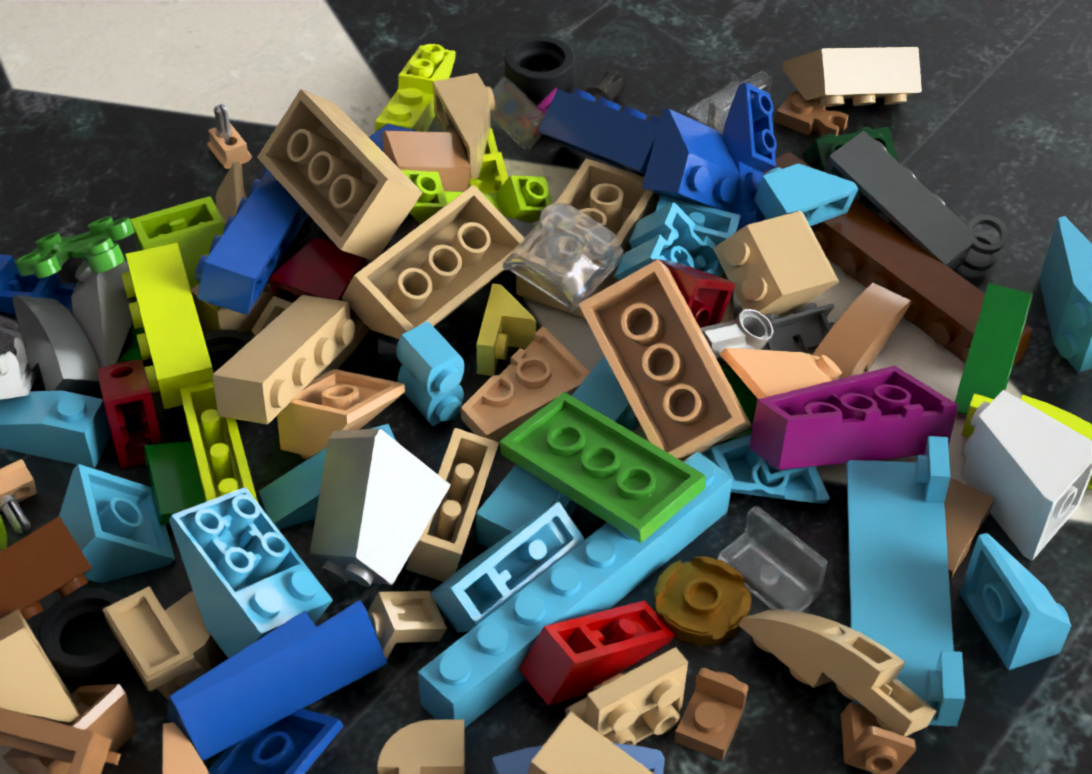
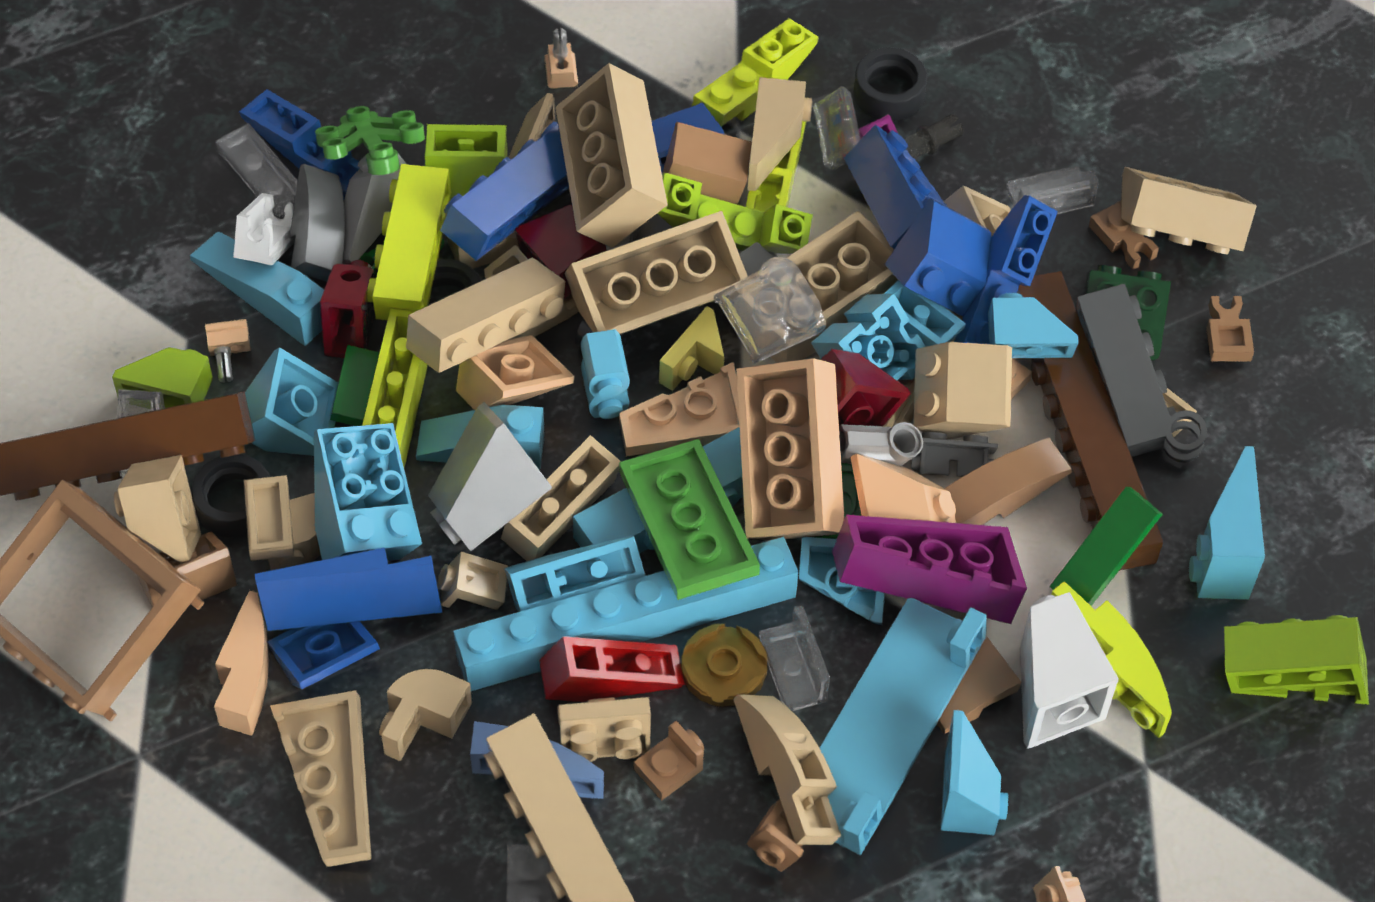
camera: 25 degrees right, 10 degrees up
(951, 159) = (1227, 334): none -> medium nougat plate

